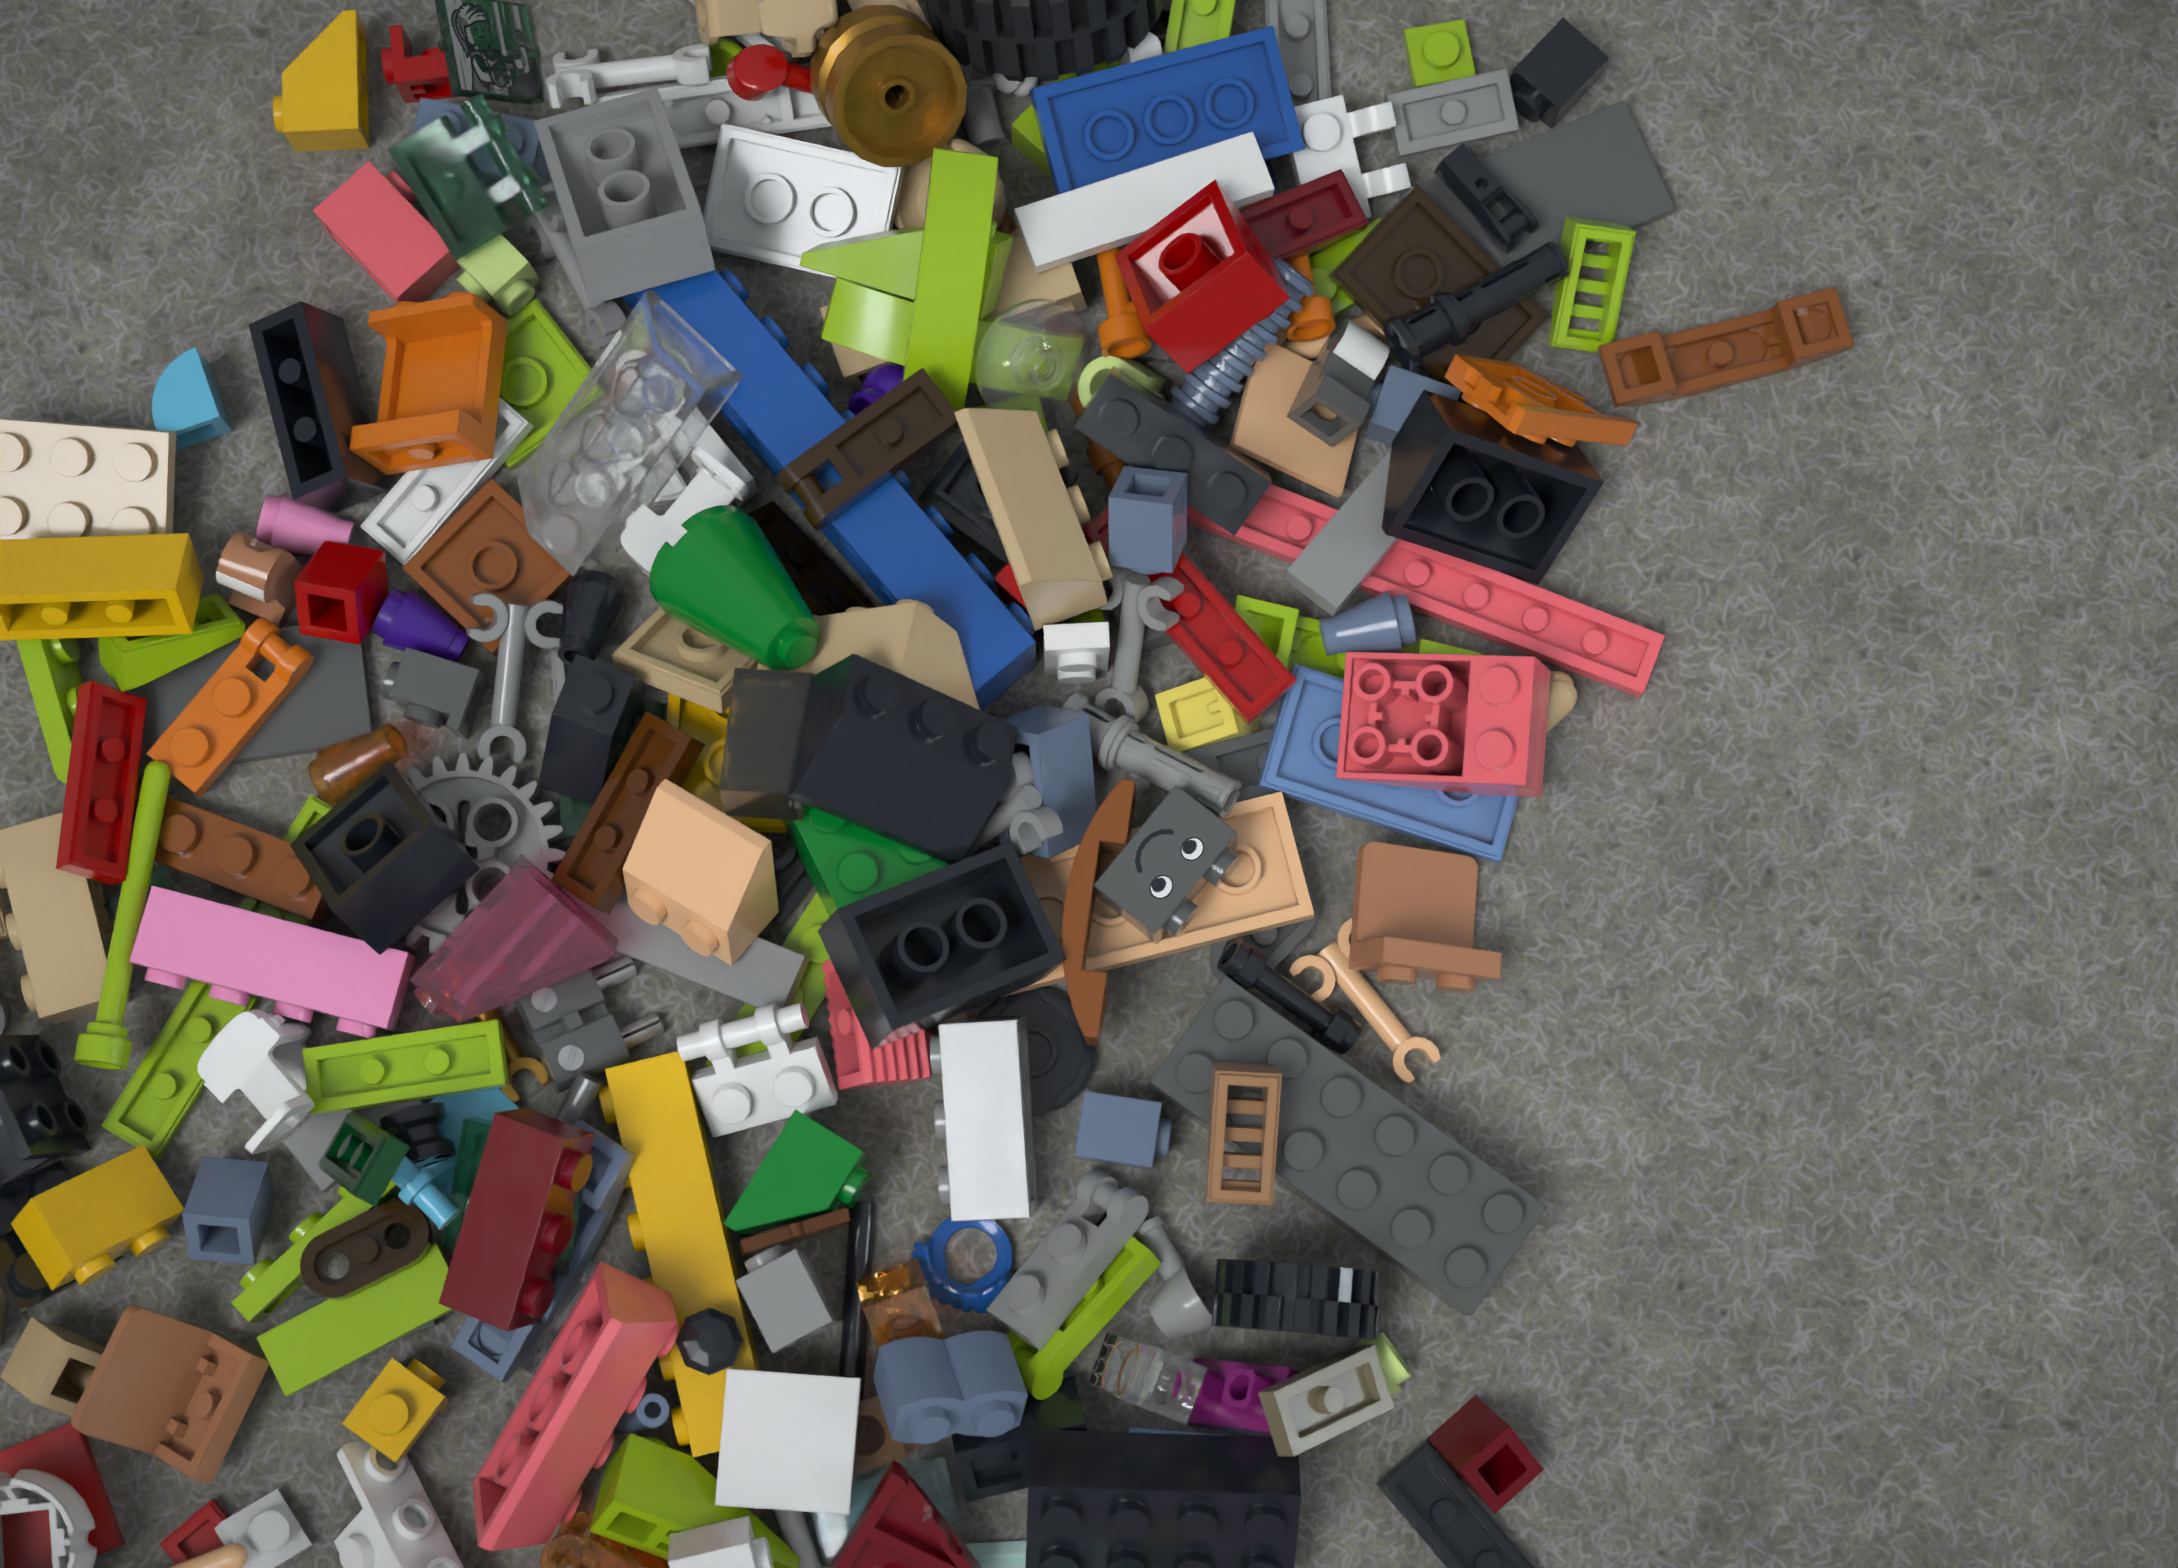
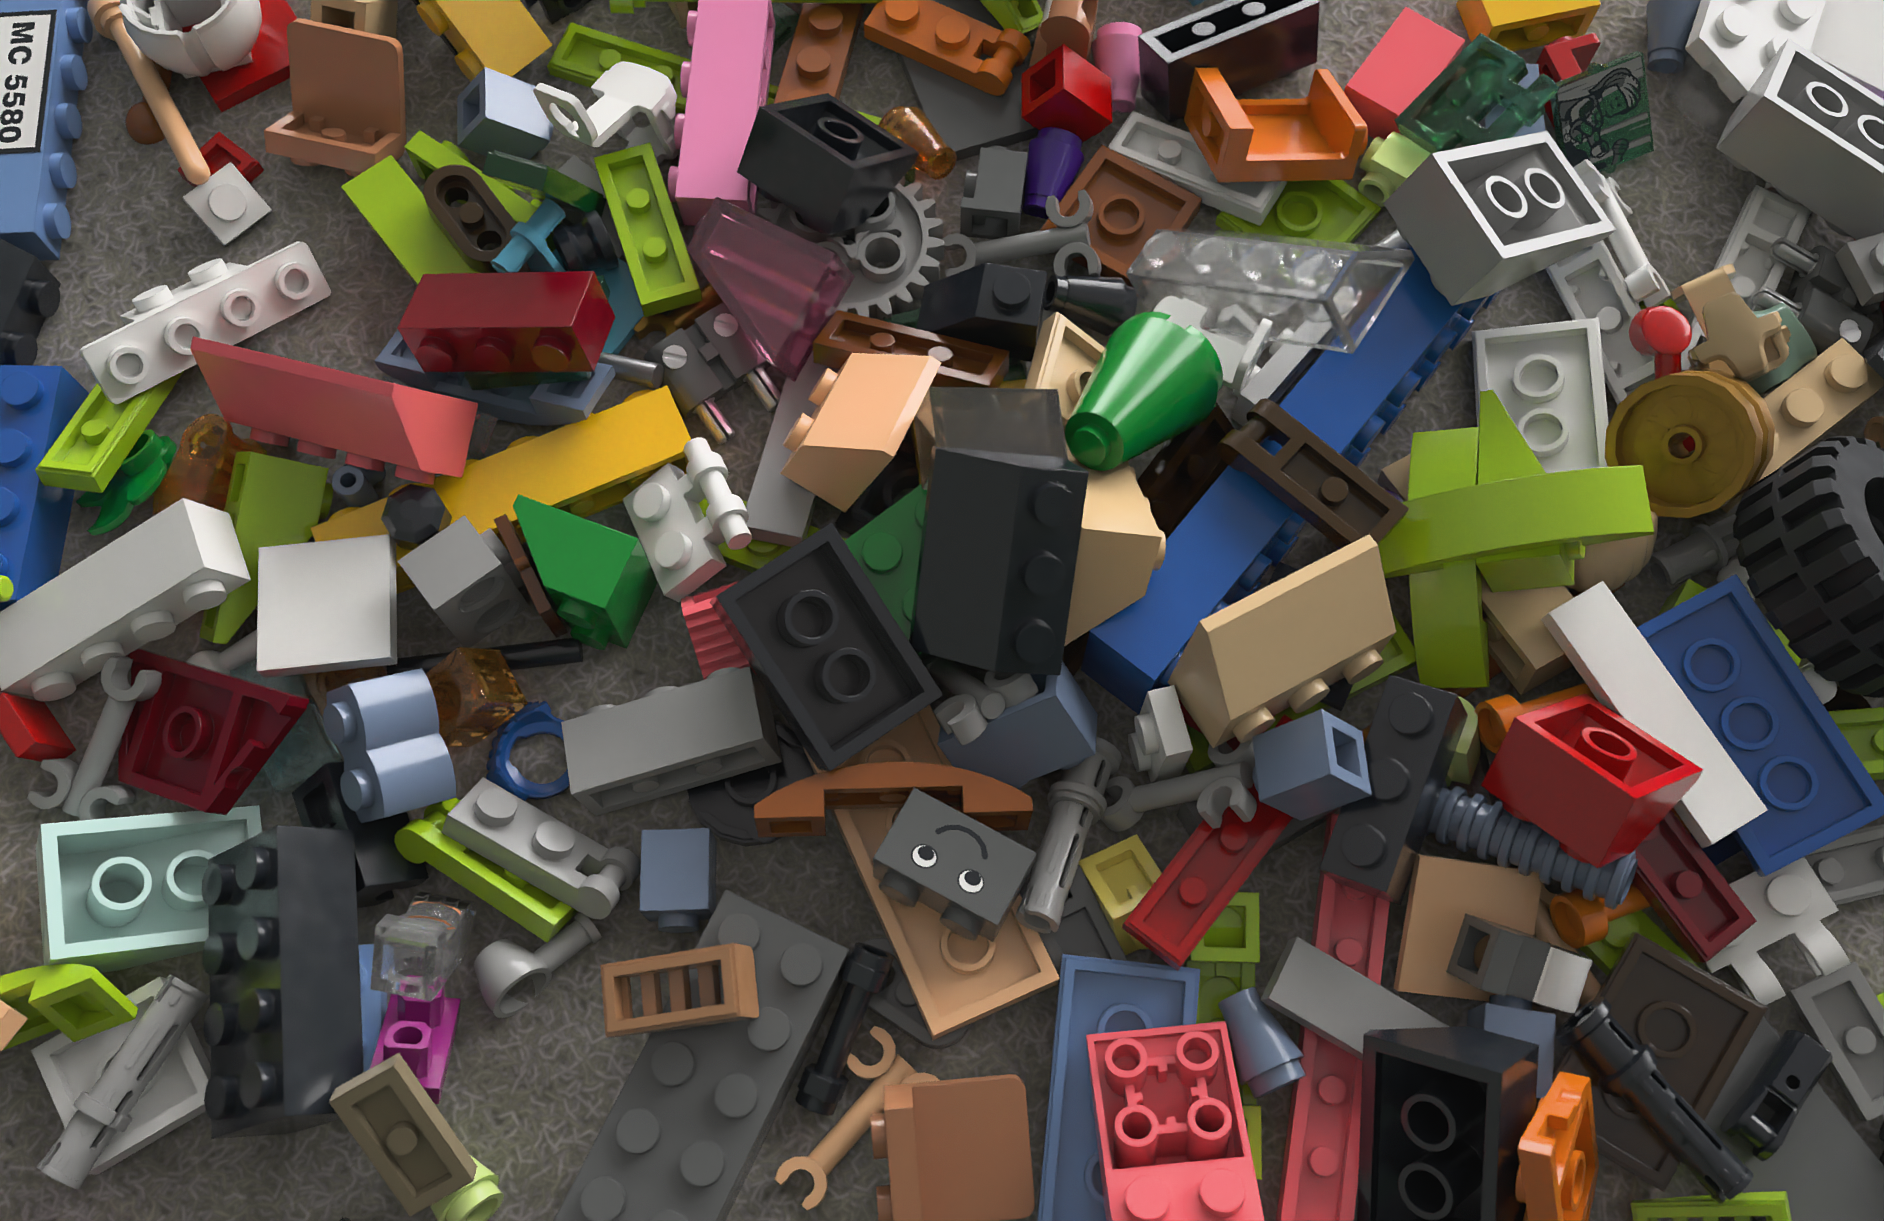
camera: 85 degrees right, 10 degrees down
(397, 1408) = (342, 280): yellow bracket -> none
(1017, 347) = (1468, 615): clear dish -> none
(1297, 1298) = (512, 1087): black wheel -> none

